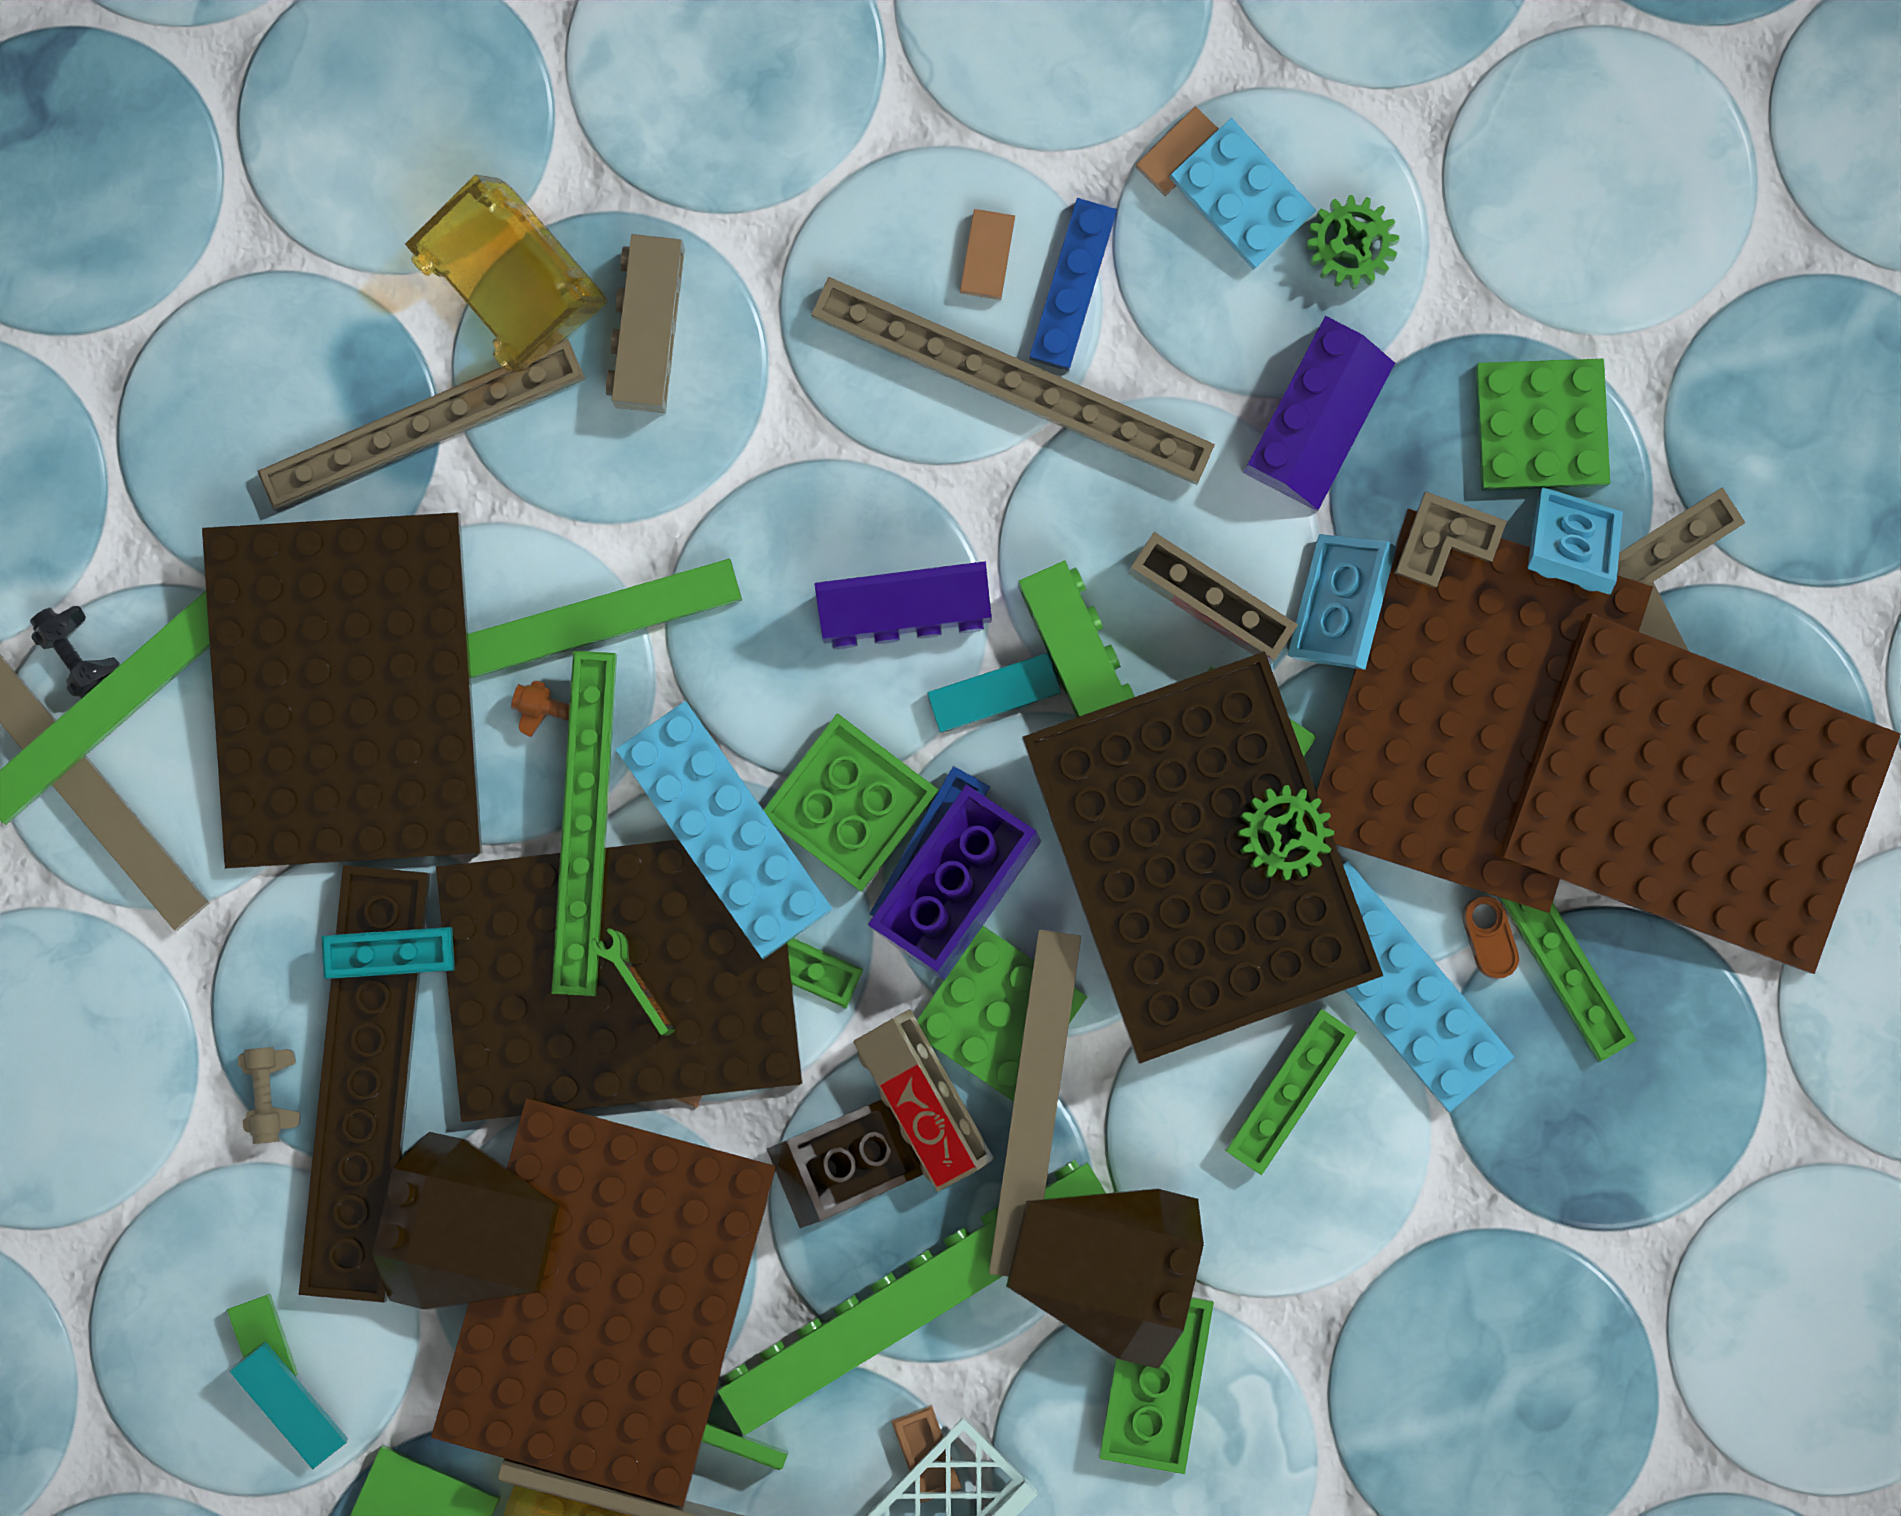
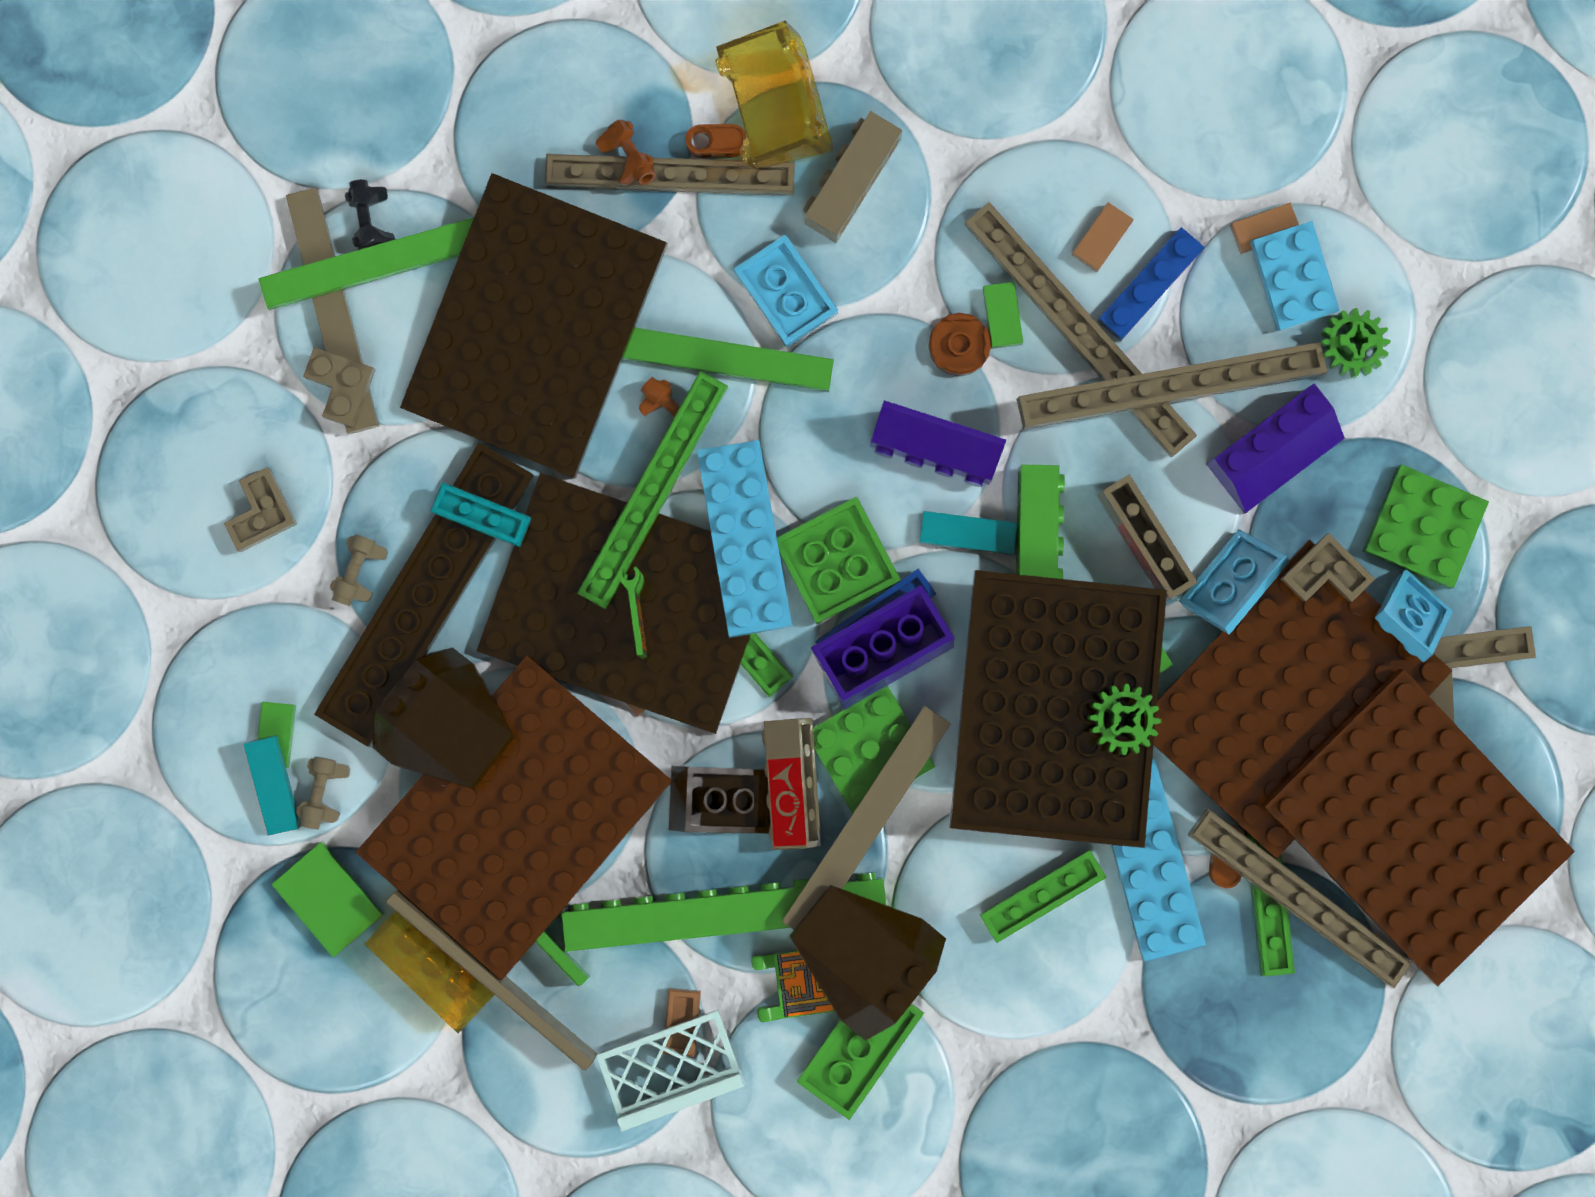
camera: 25 degrees right, 0 degrees up
(125, 1076) = (268, 514): none -> dark tan plate
(146, 866) = (348, 383): none -> dark tan plate
(355, 1412) = (314, 810): none -> dark tan piece
(376, 432) = (637, 164): none -> dark orange piece
(468, 353) = (723, 140): none -> dark orange piece
(632, 501) = (786, 291): none -> medium azure plate
(875, 467) = (959, 344): none -> dark orange tile
(911, 407) = (1003, 315): none -> bright green tile
(1045, 1344) = (796, 986): none -> flag
(1155, 399) = (1171, 385): none -> dark tan plate
(1599, 947) = (1299, 898): none -> dark tan tile

